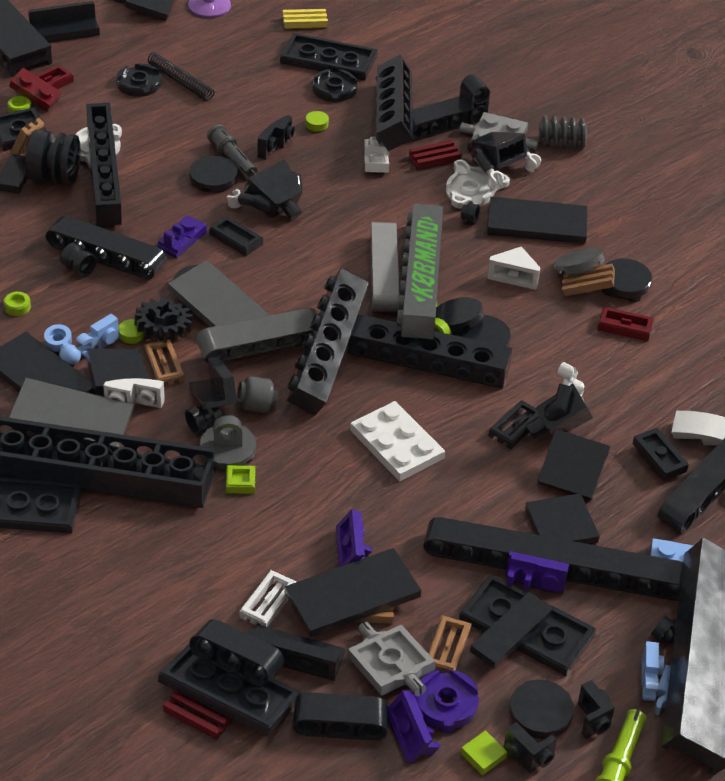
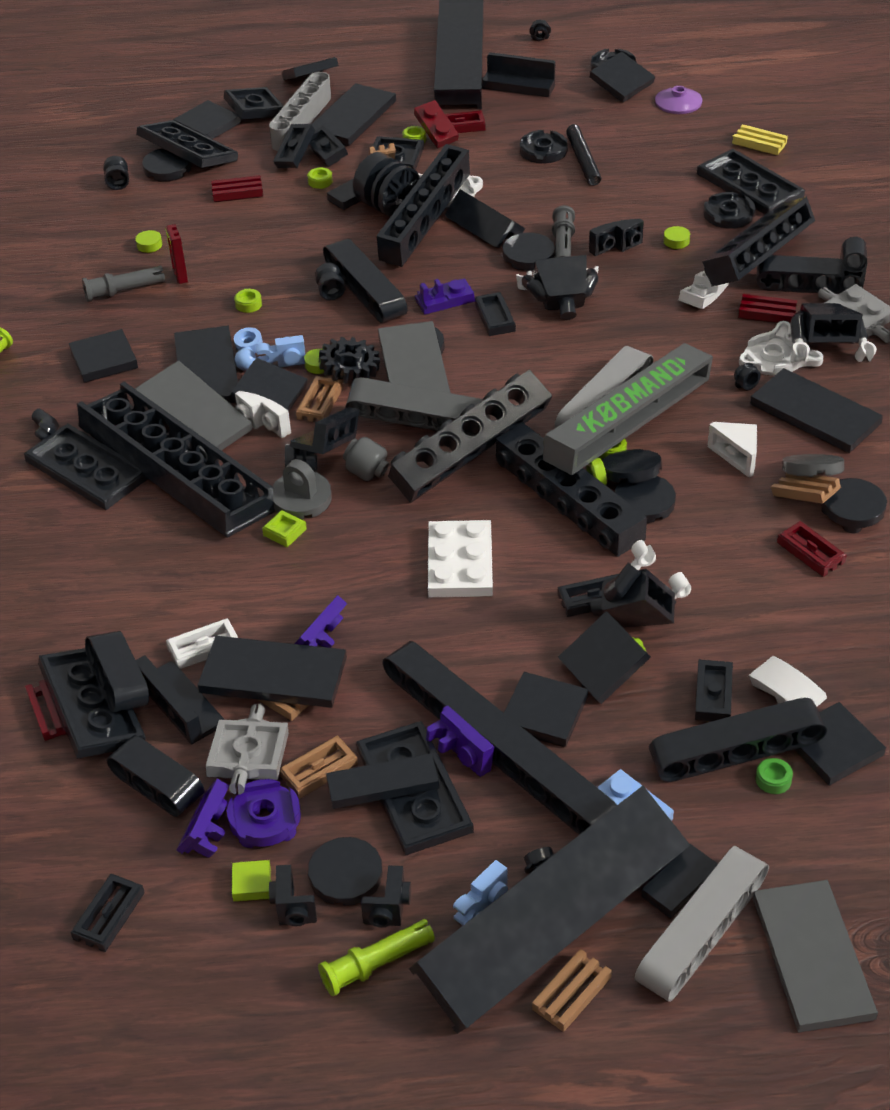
camera: 40 degrees right, 0 degrees up
(152, 160) = (481, 219): none -> black panel

